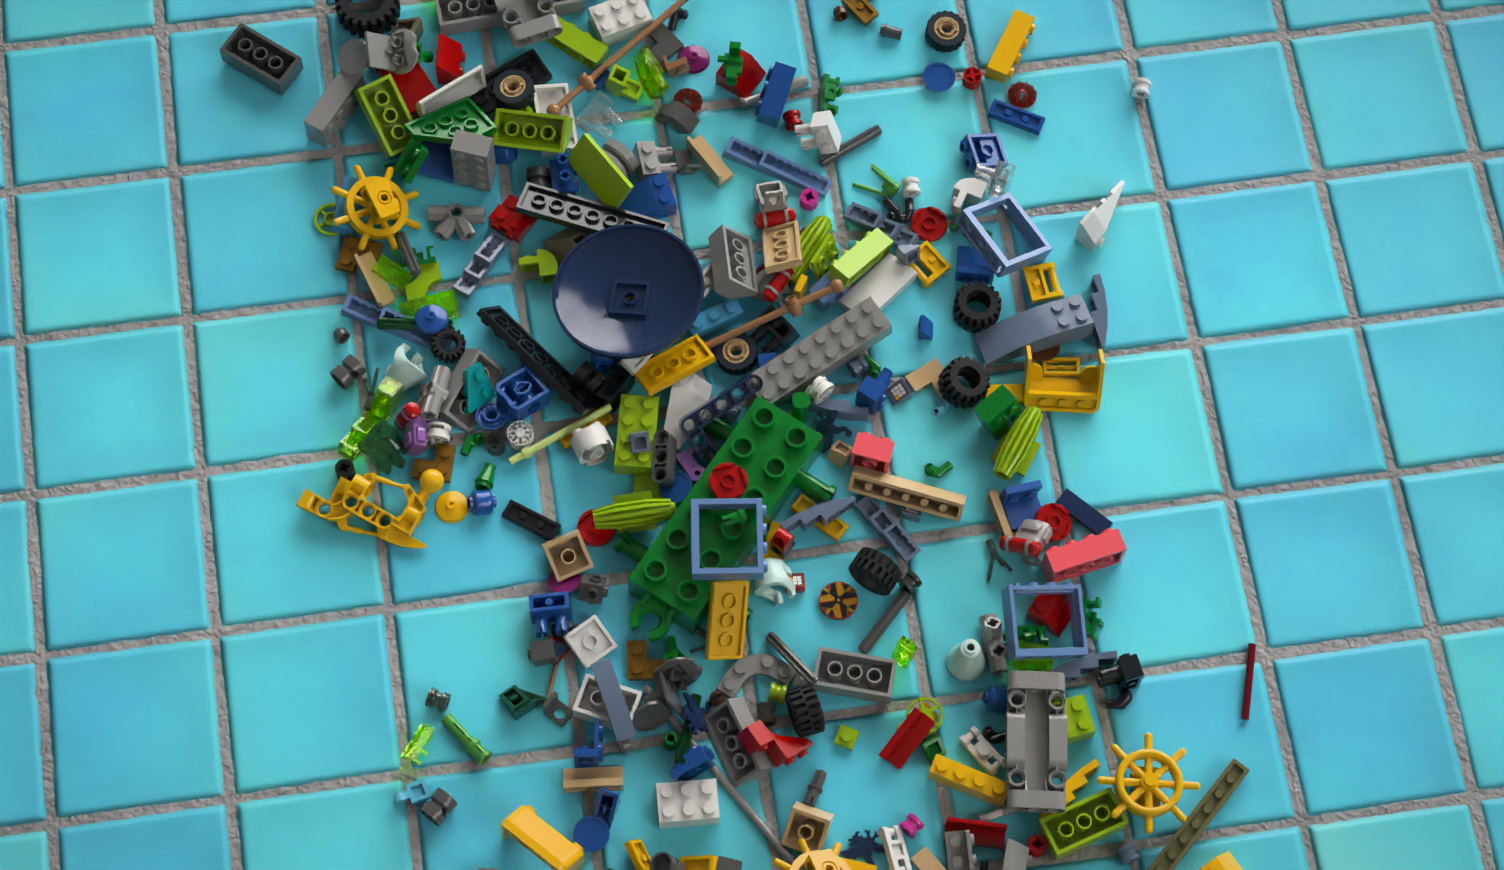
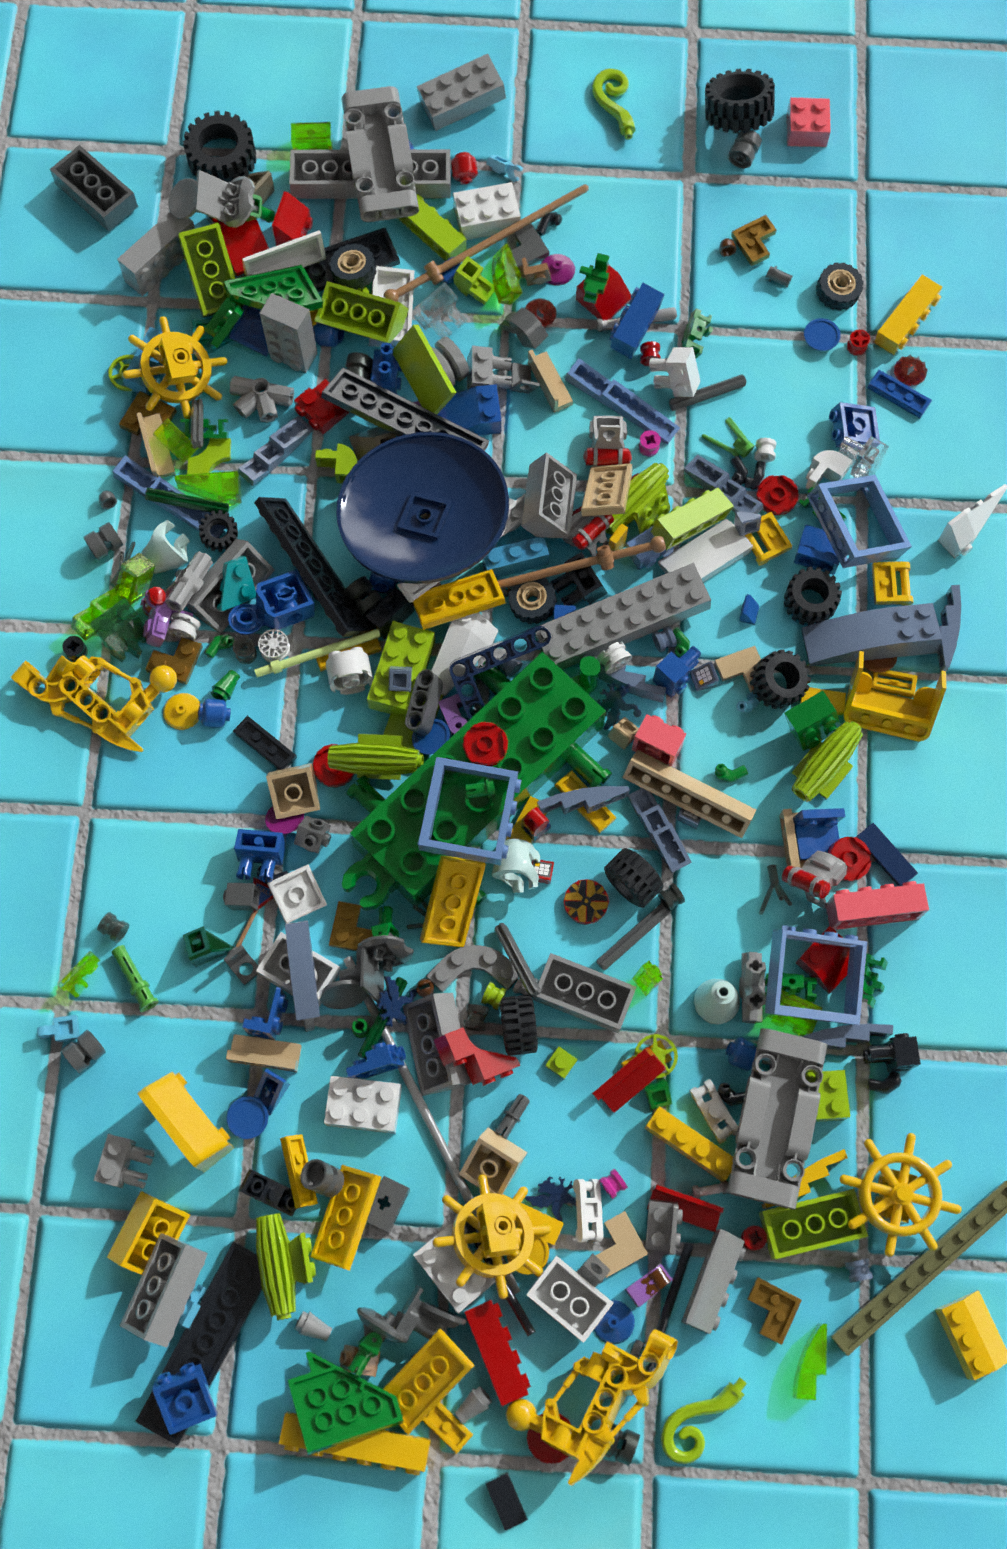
camera: 15 degrees right, 5 degrees up
(431, 319) = (205, 499): blue piece -> none

